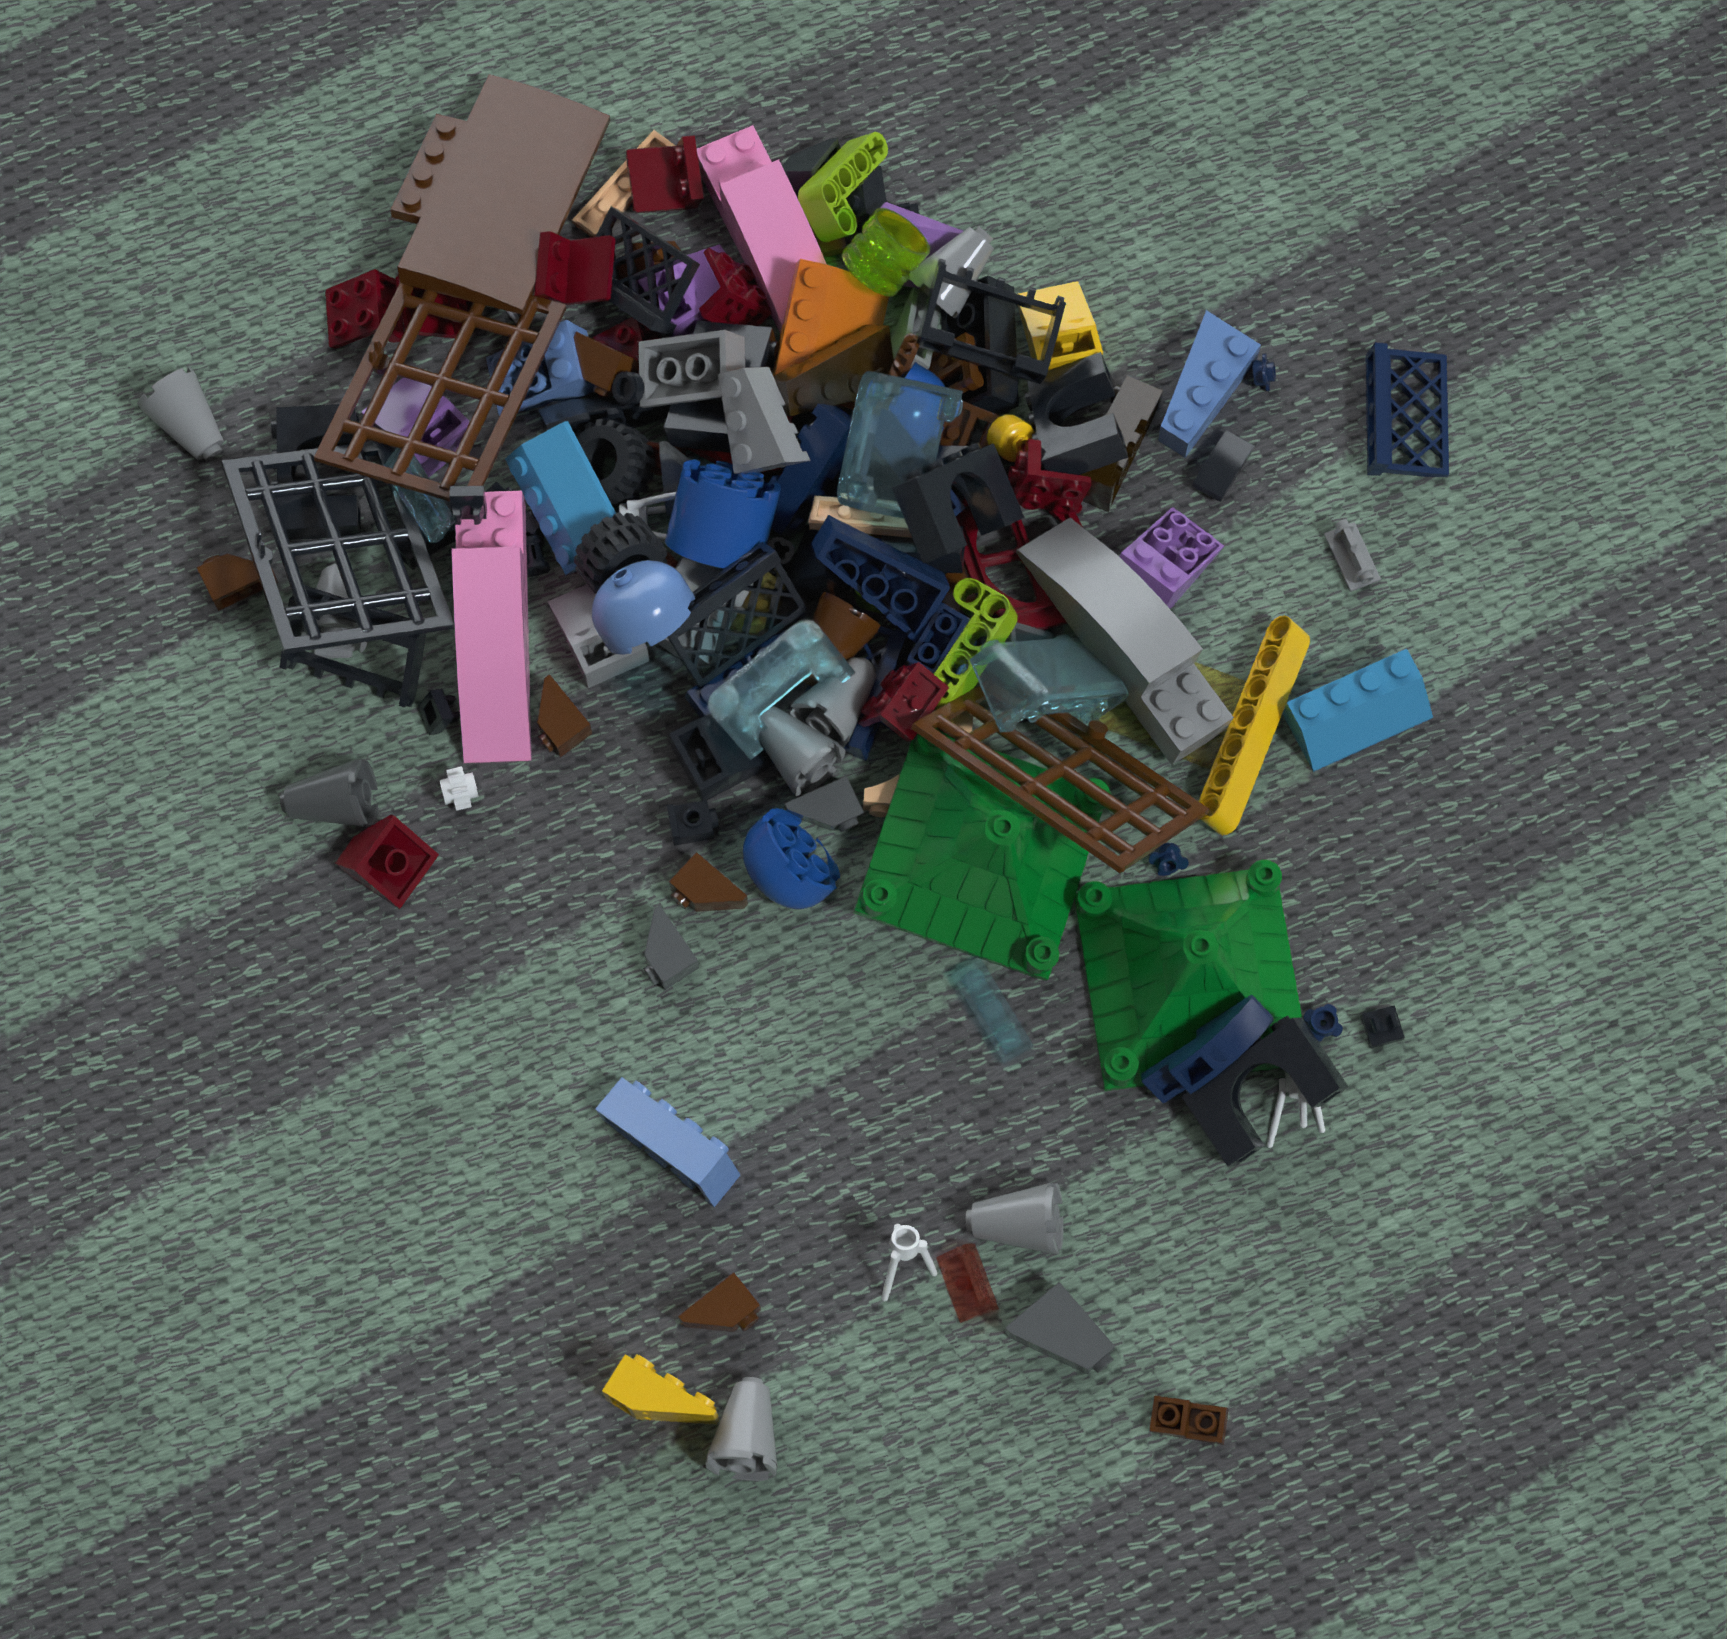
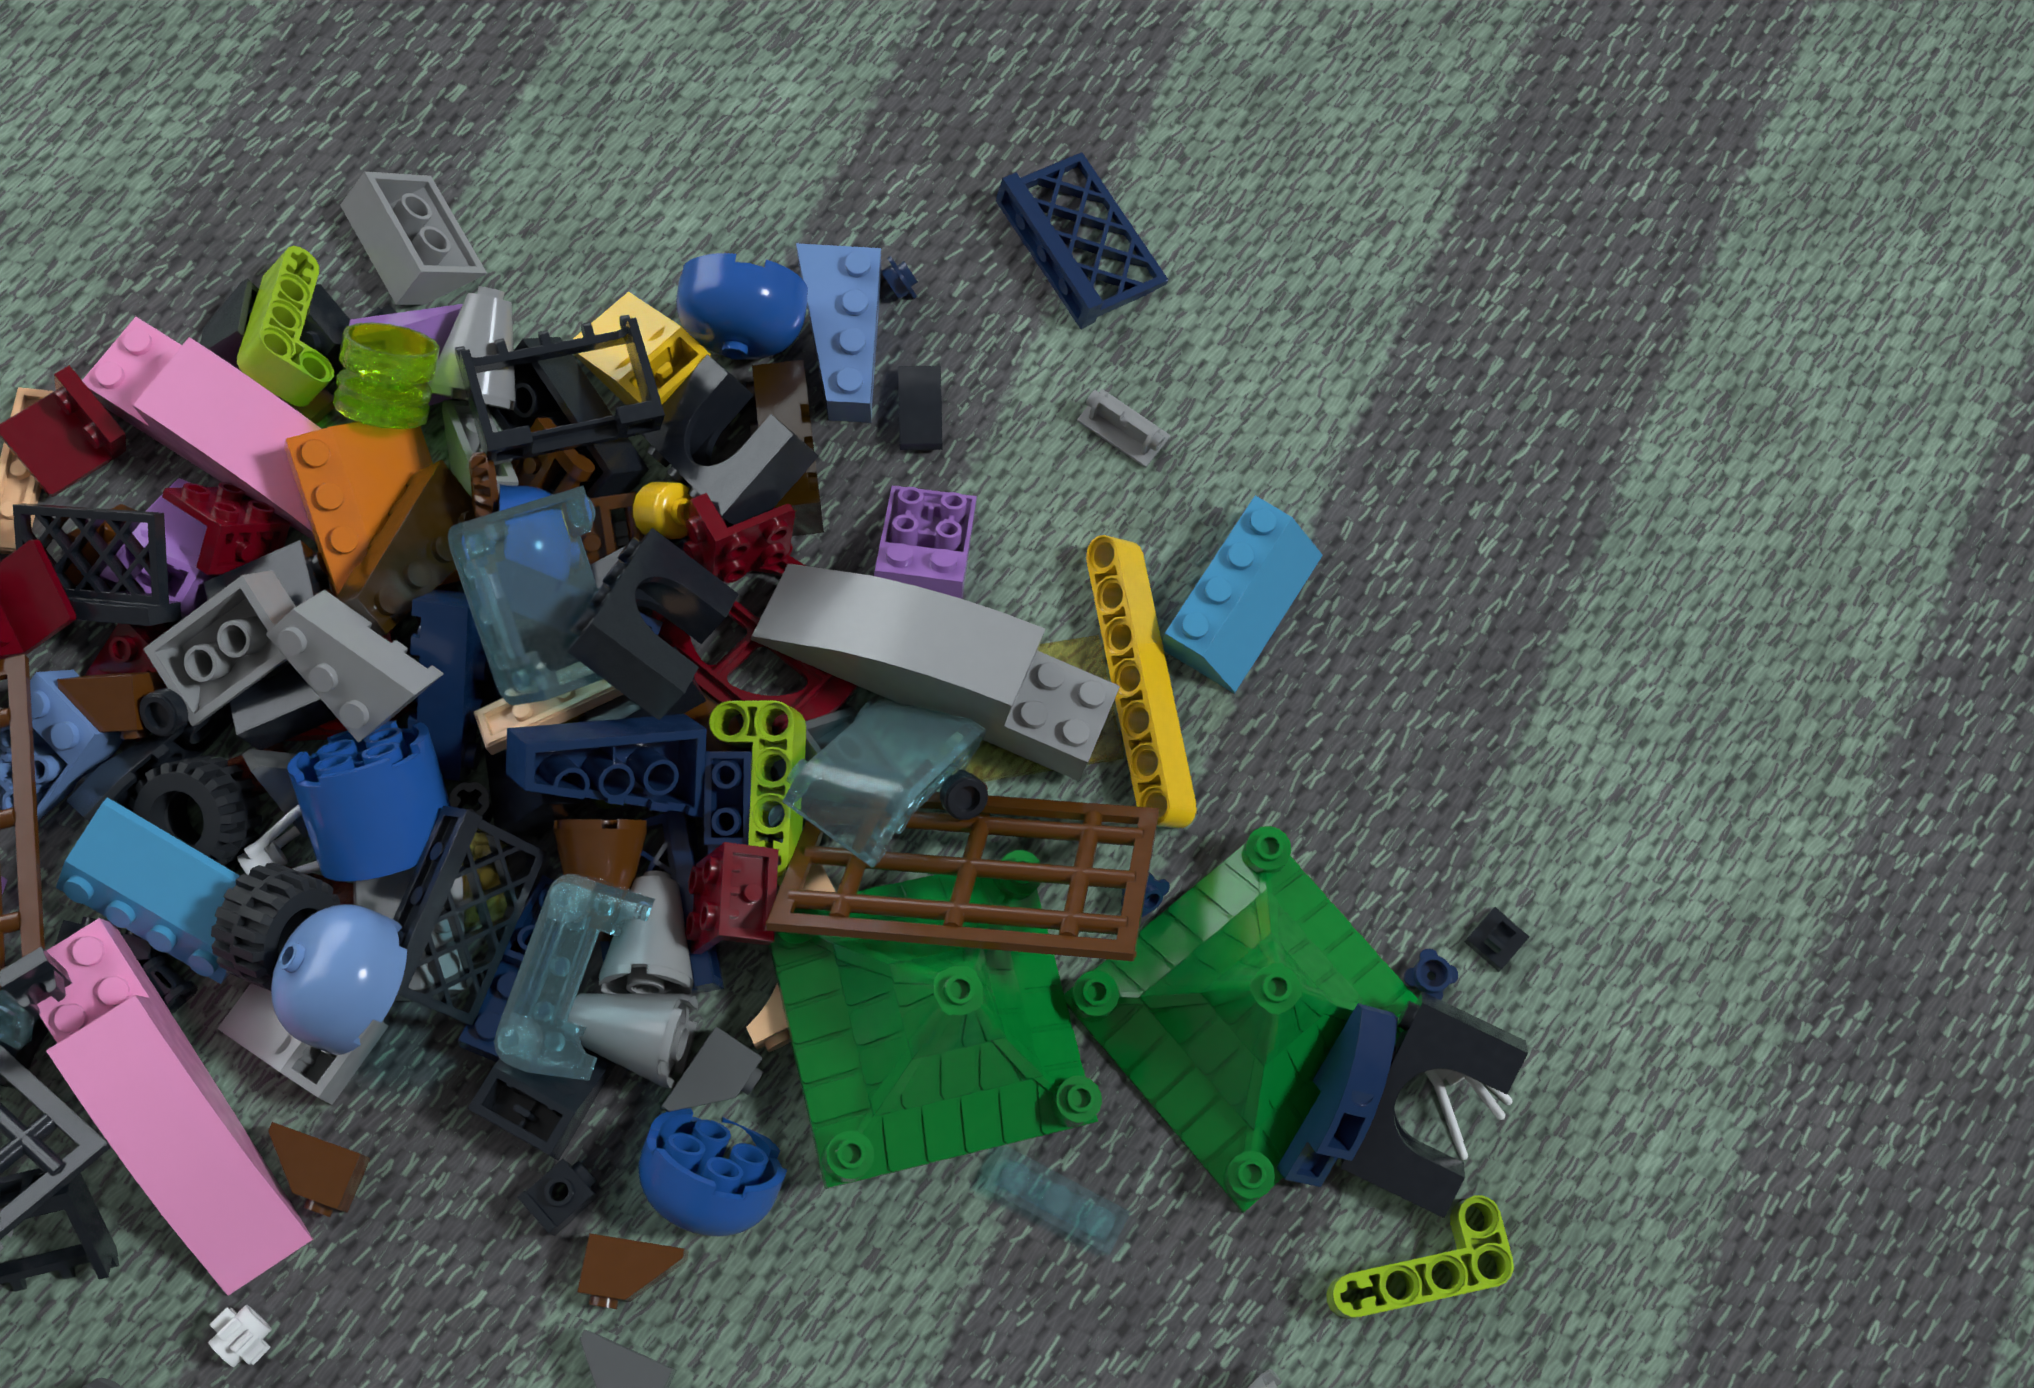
camera: 40 degrees left, 0 degrees up
(436, 711) = (153, 1253): black tile -> none
(958, 166) = (411, 236): none -> light grey slope
(1087, 725) = (963, 795): none -> black tile
(1142, 333) = (741, 306): none -> blue cylinder
(1192, 1188) = (1418, 1272): none -> lime beam

